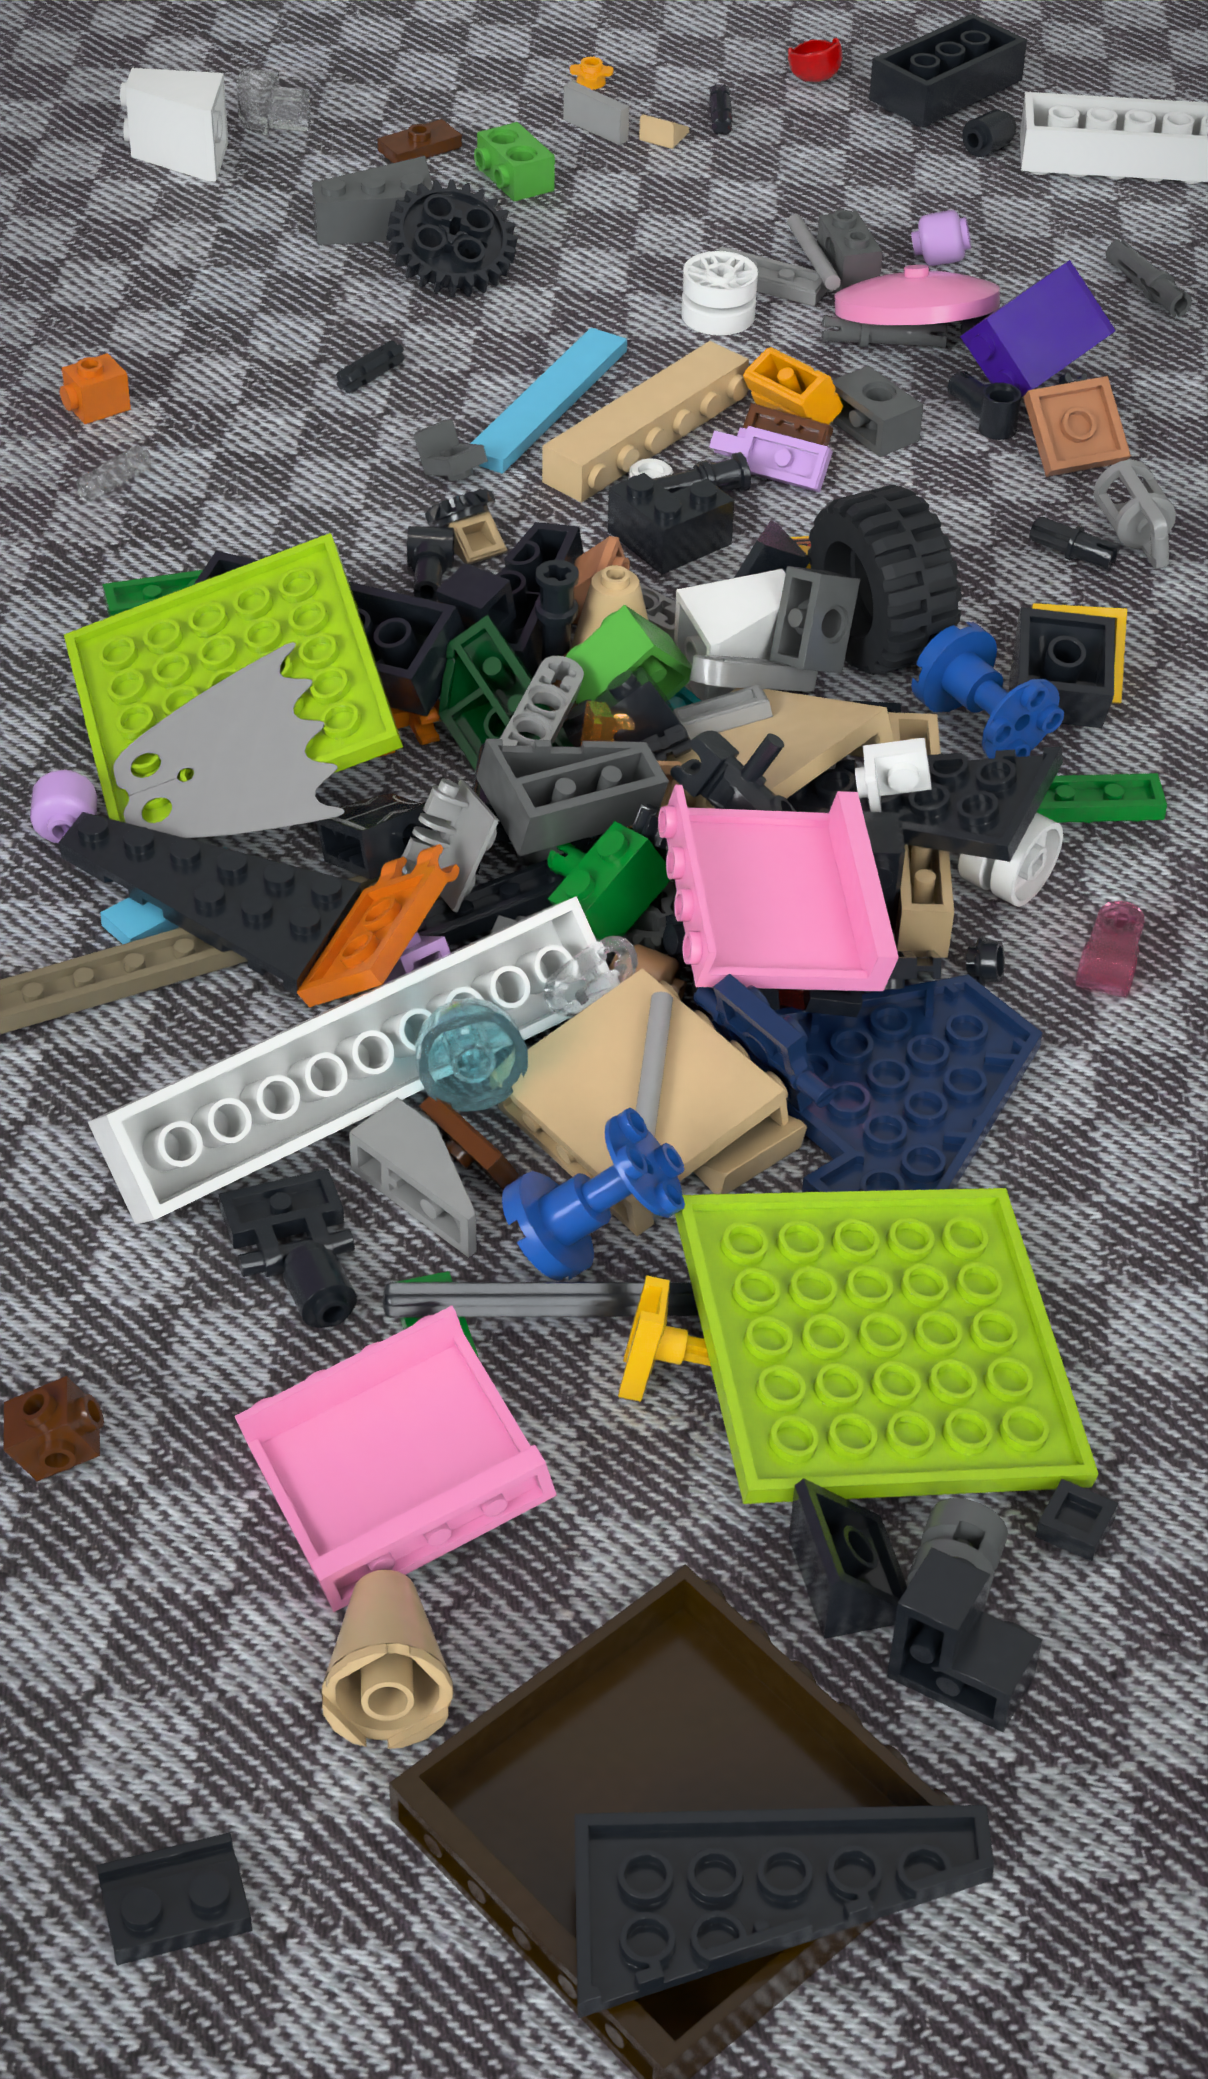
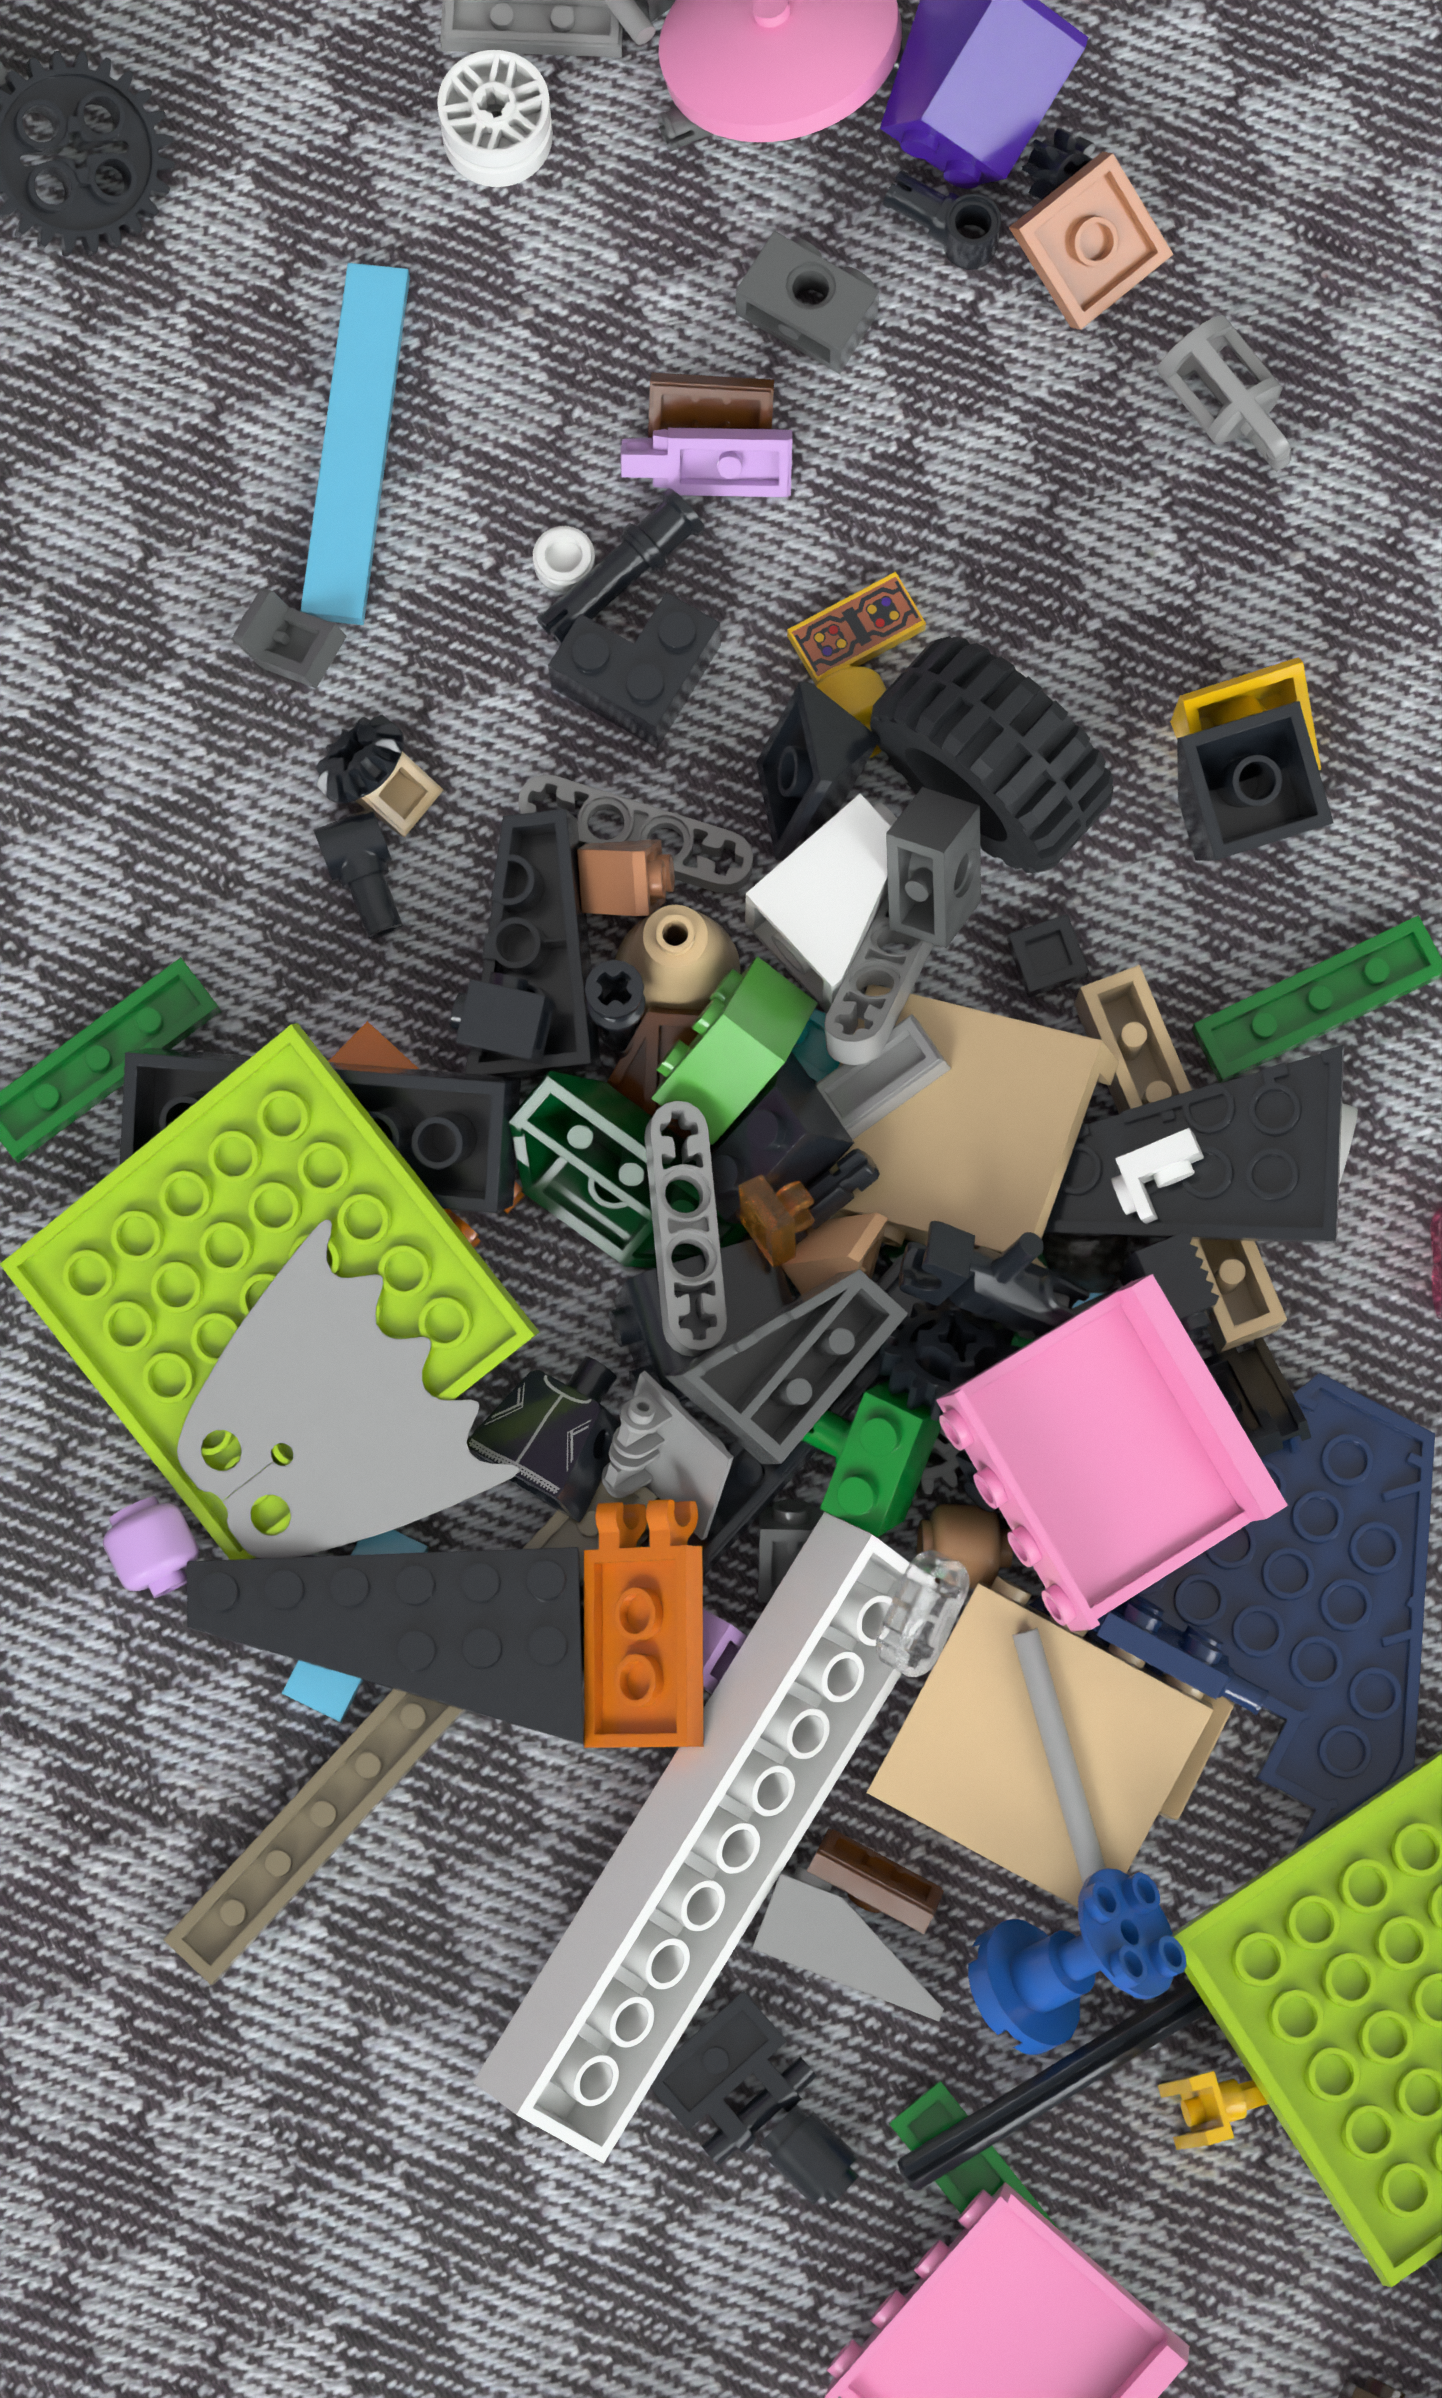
camera: 20 degrees left, 35 degrees up
(370, 366) = (85, 474): black axle -> none
(470, 1054) = (846, 1808): clear light blue cylinder -> none
(644, 421) = (516, 453): tan brick -> none
(792, 387) = (690, 321): light orange brick -> none
(962, 673) = (1154, 860): blue piece -> none
(986, 961) = (1326, 1328): black plate -> none
(1074, 542) = (1160, 477): black axle -> none

